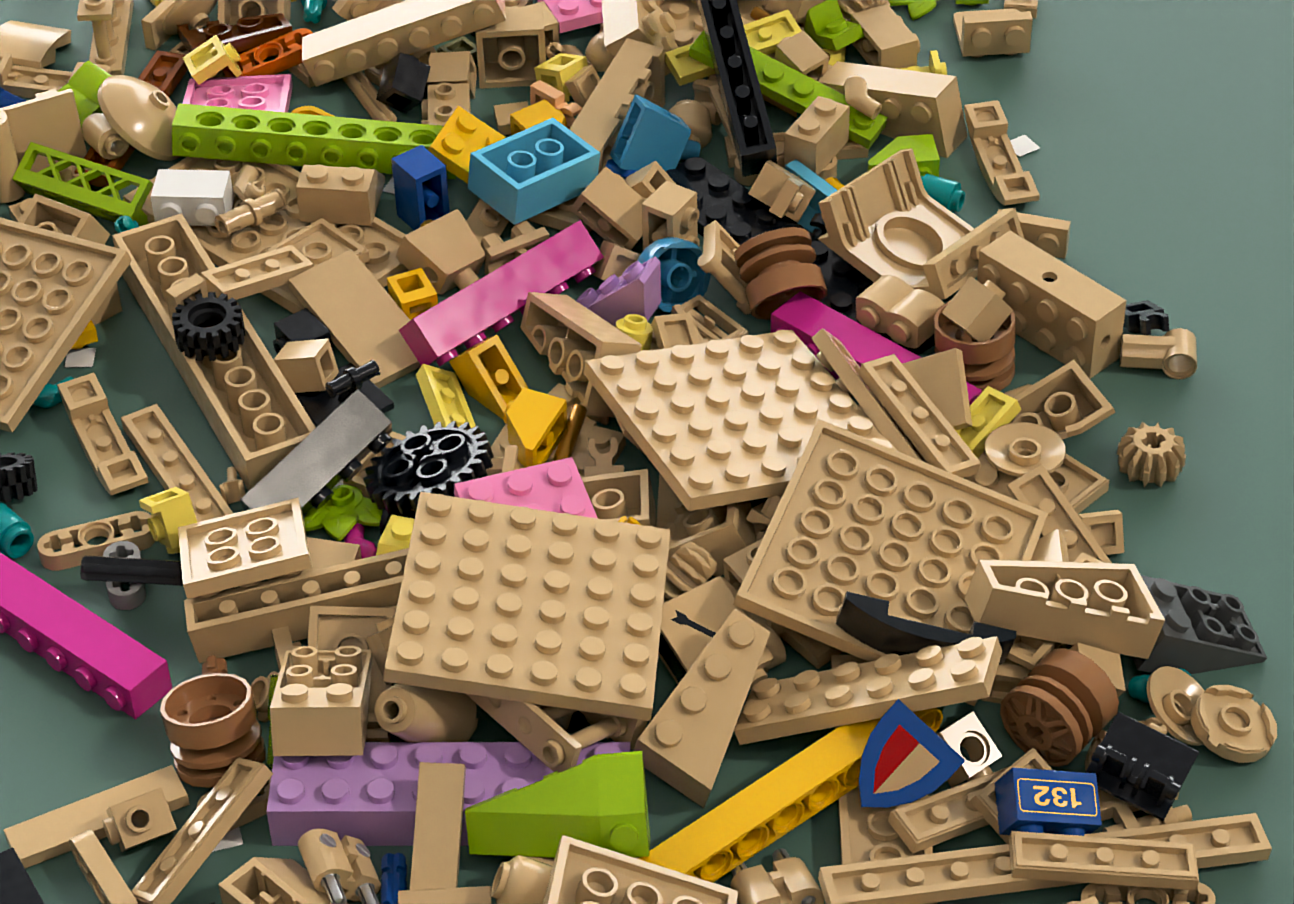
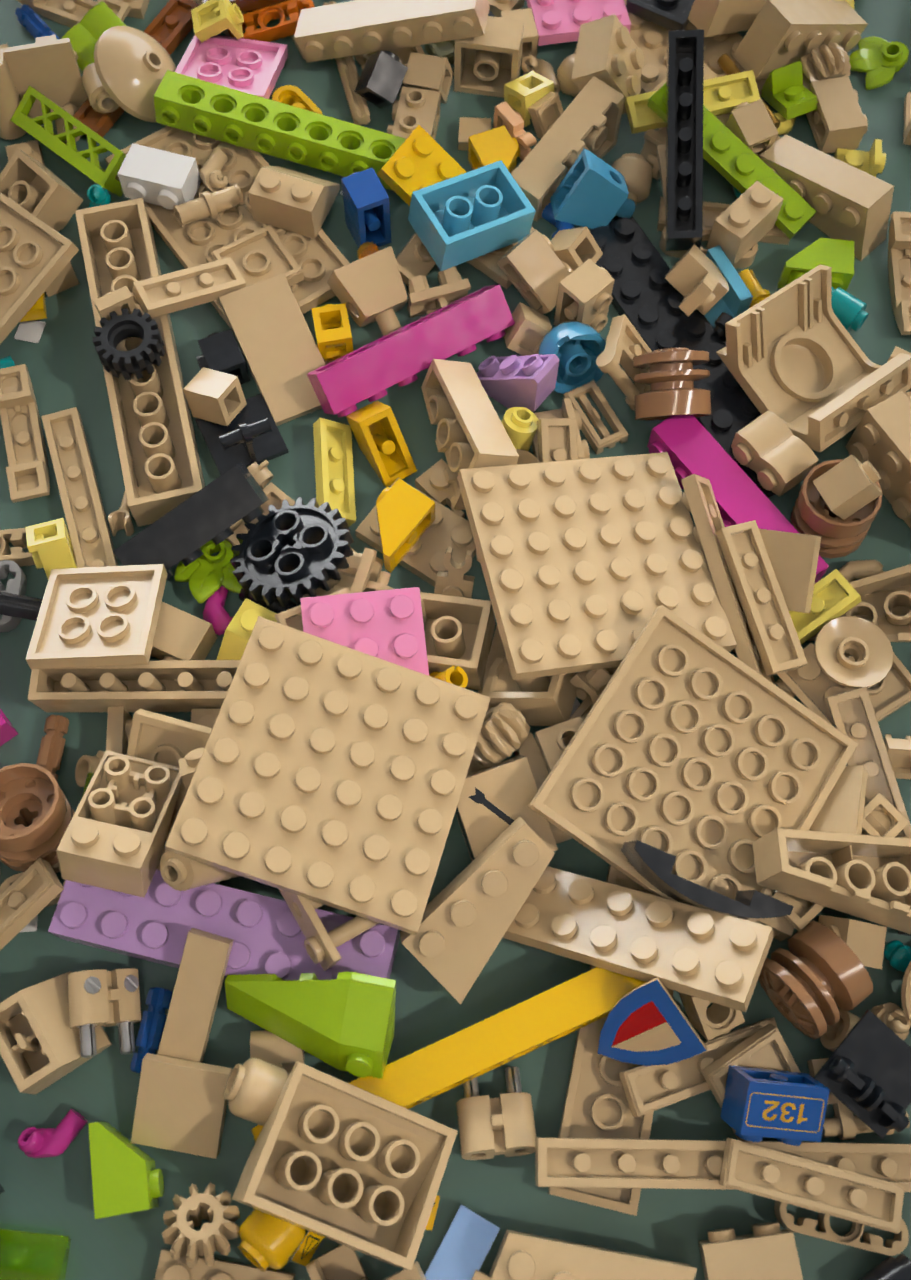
camera: 10 degrees right, 25 degrees up
(571, 432) = (426, 545): pearl gold bar -> none
(857, 97) = (793, 187): tan arm -> none

